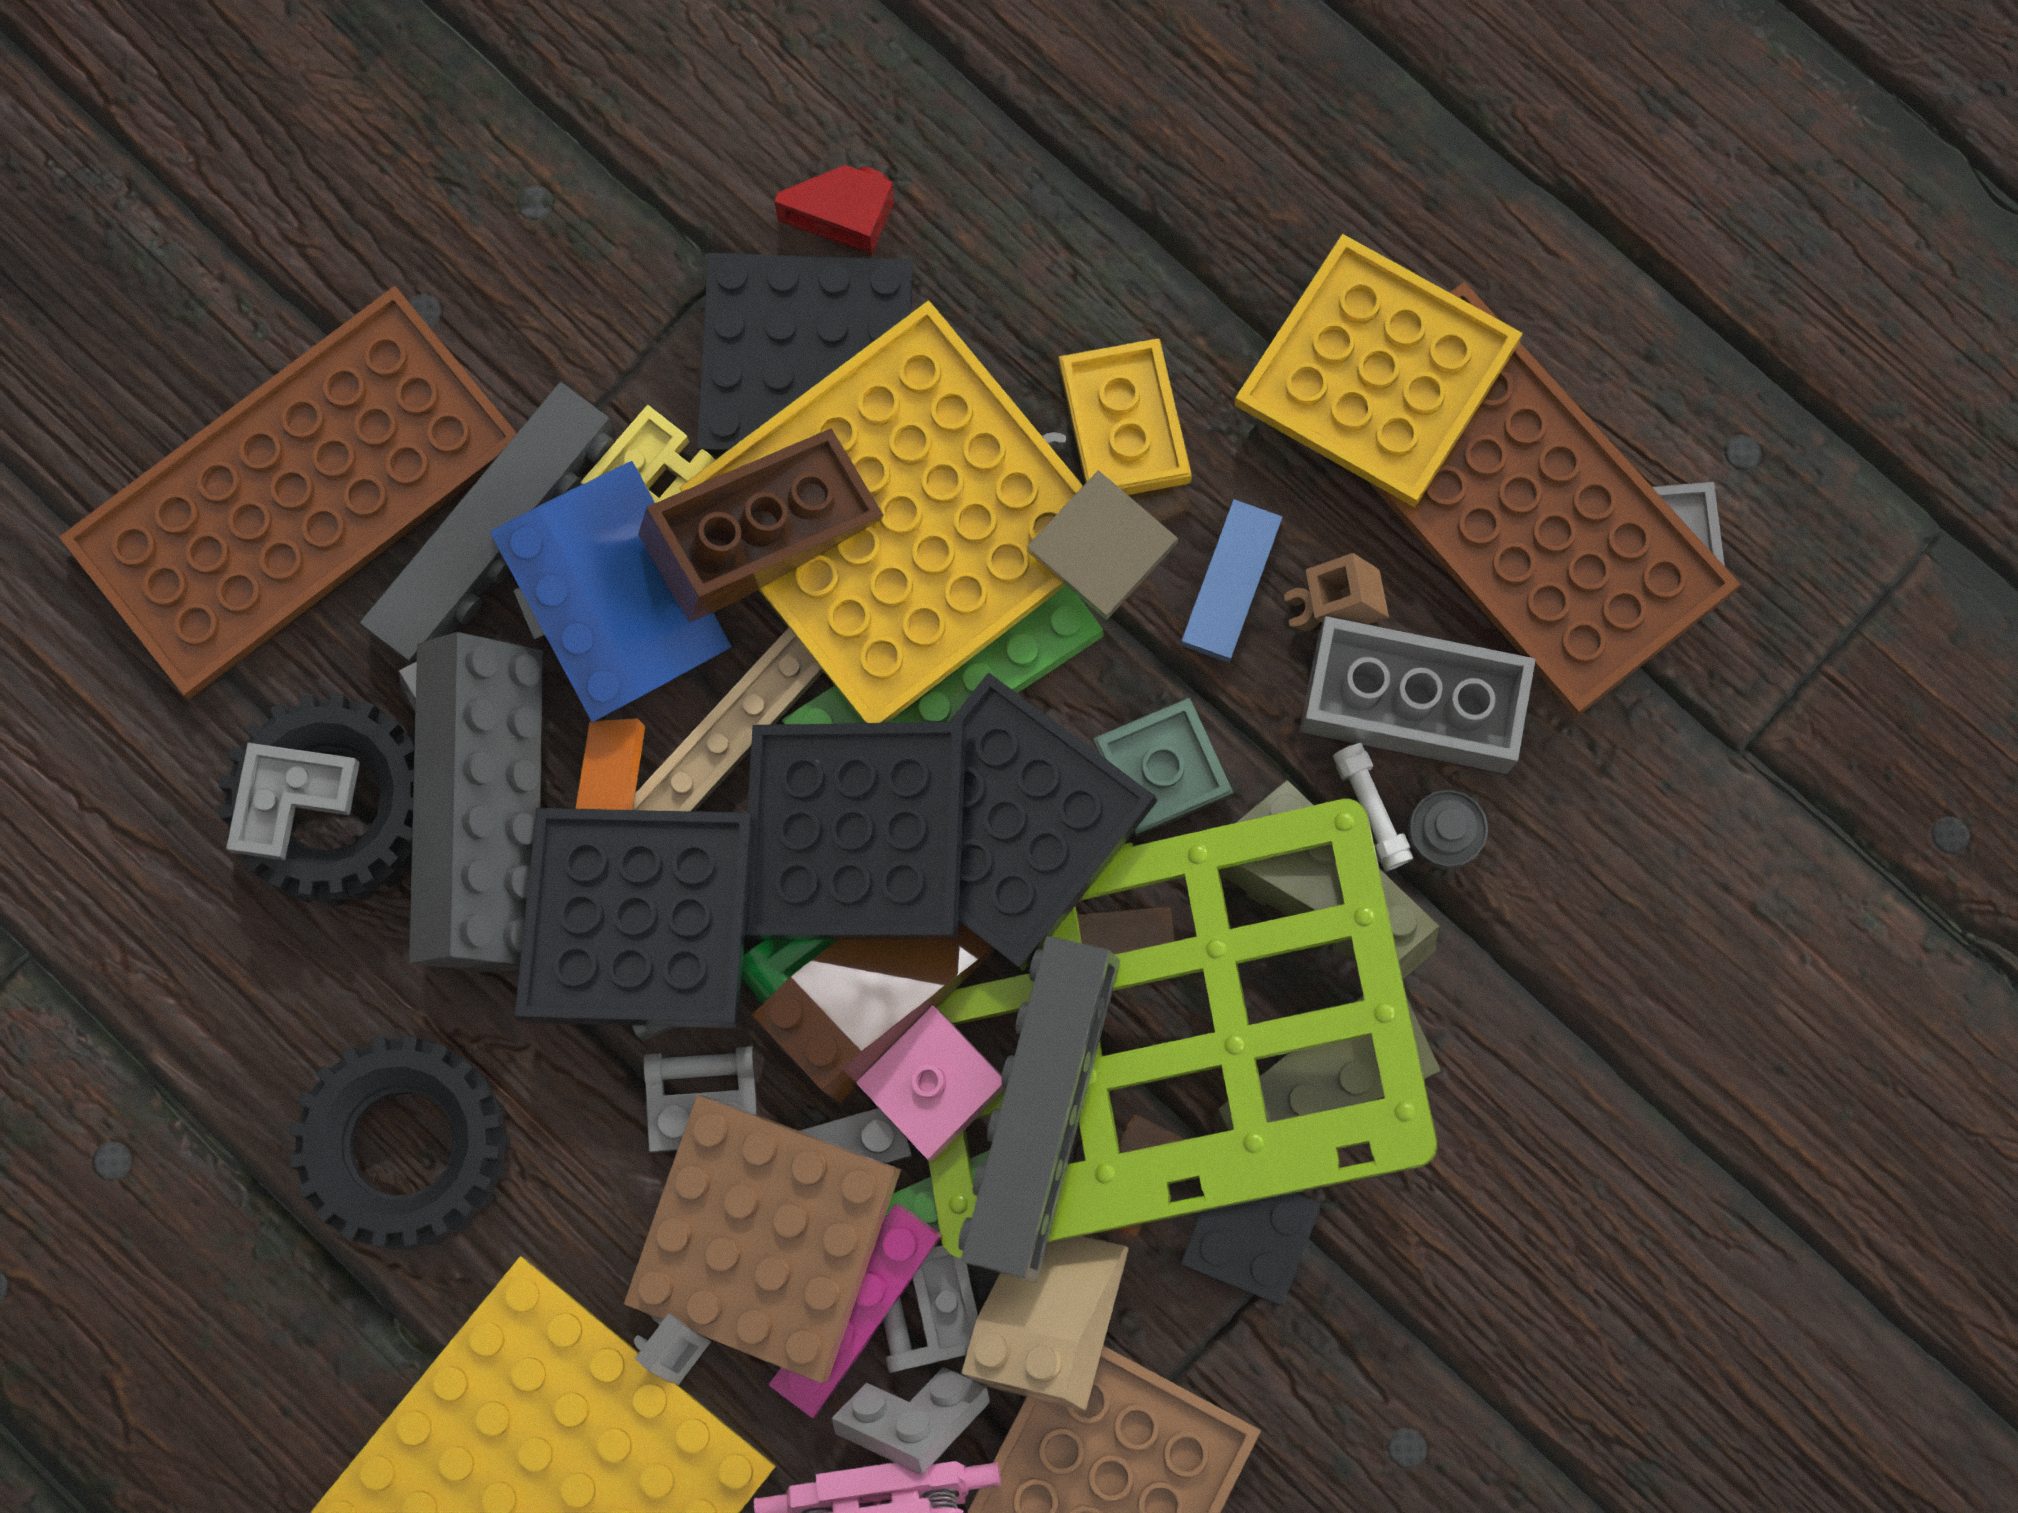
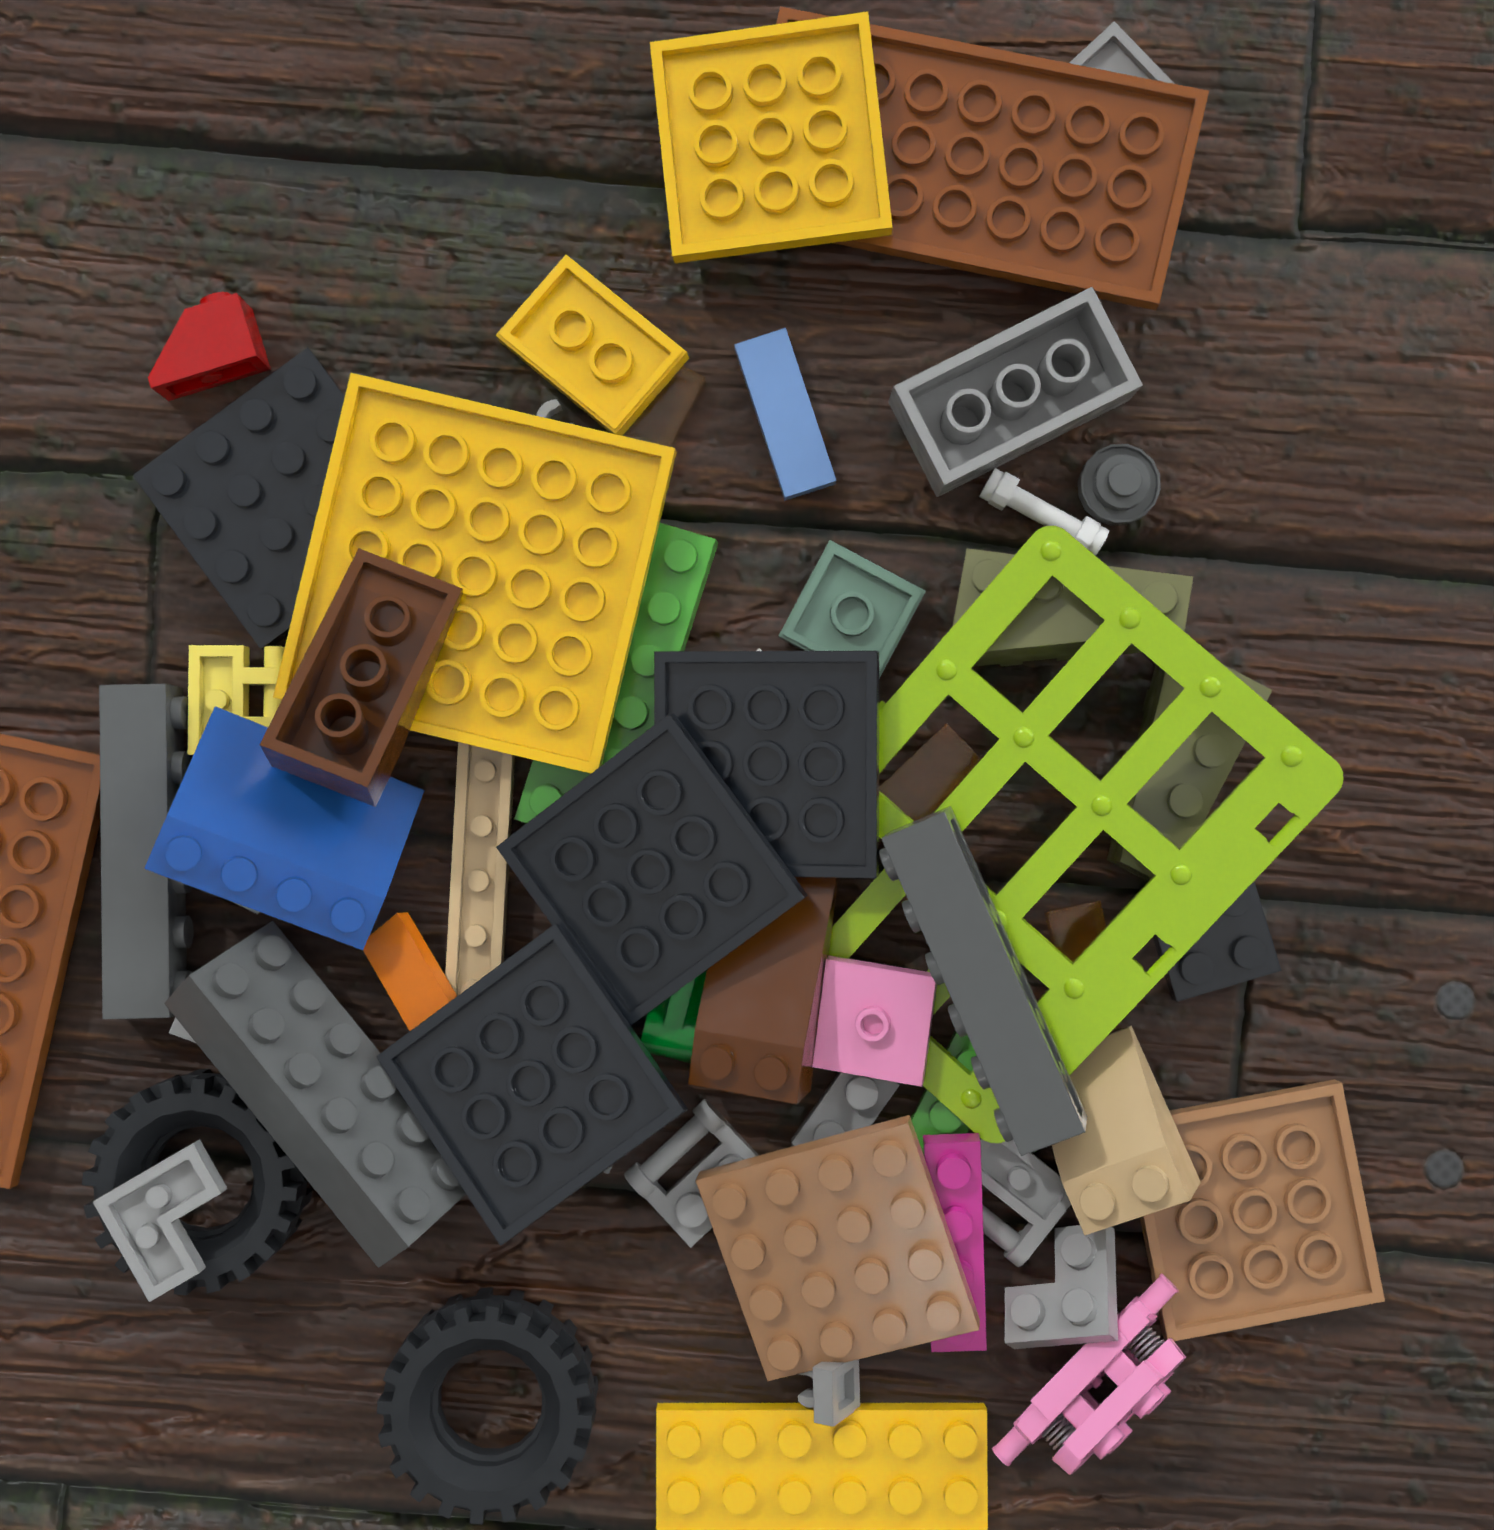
camera: 40 degrees left, 10 degrees up
(1102, 544) = (664, 470): dark tan tile -> none
(1341, 590) = (884, 356): medium nougat brick -> none

